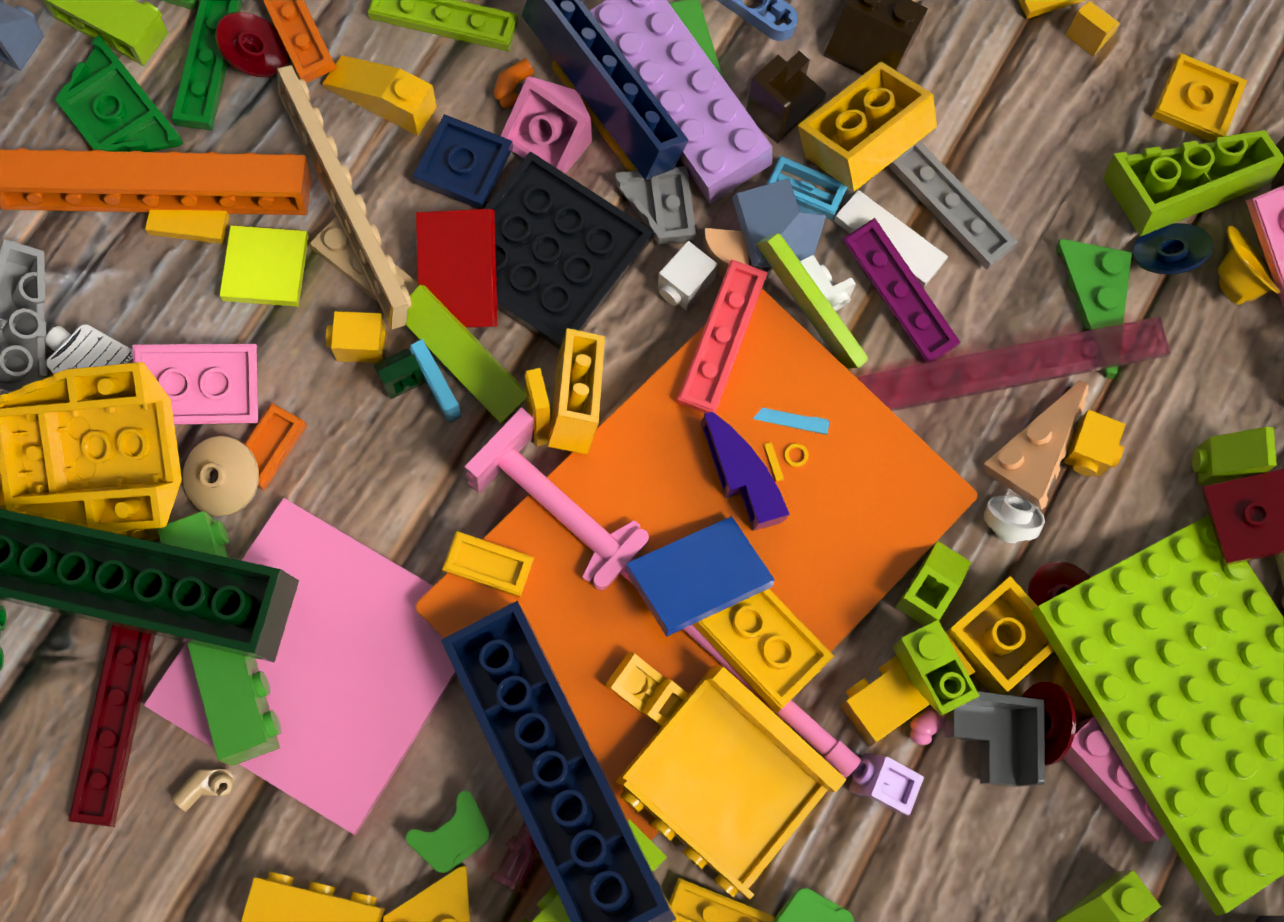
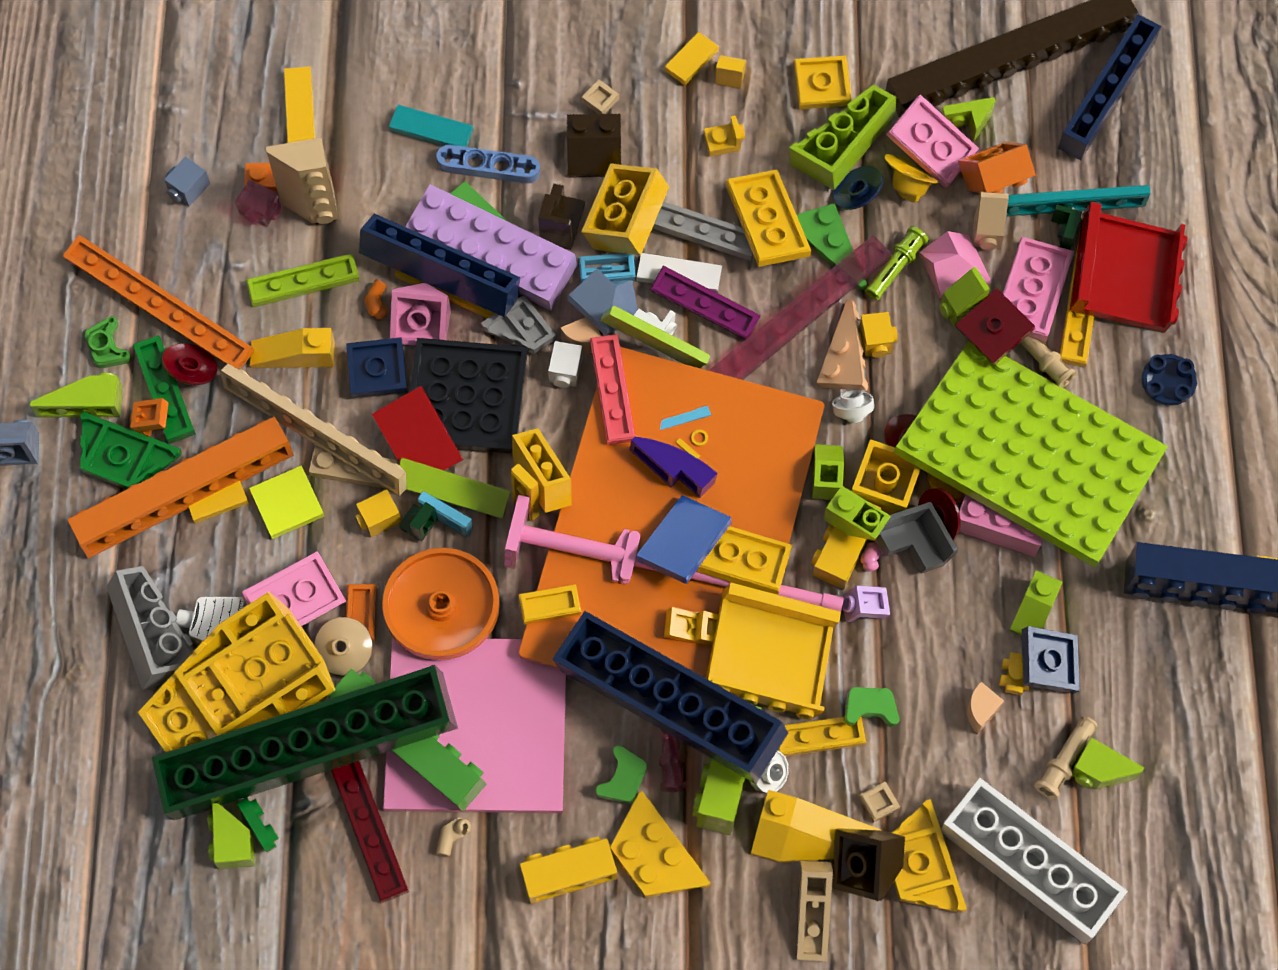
camera: 25 degrees left, 5 degrees down
(165, 79) = (149, 415): none -> orange bracket
(361, 489) = (441, 603): none -> orange dish
(1038, 228) = (768, 218): none -> yellow tile
(1040, 104) = (724, 138): none -> yellow bracket
(1186, 363) = (905, 254): none -> lime pin
(1239, 400) = (950, 259): none -> bright pink slope

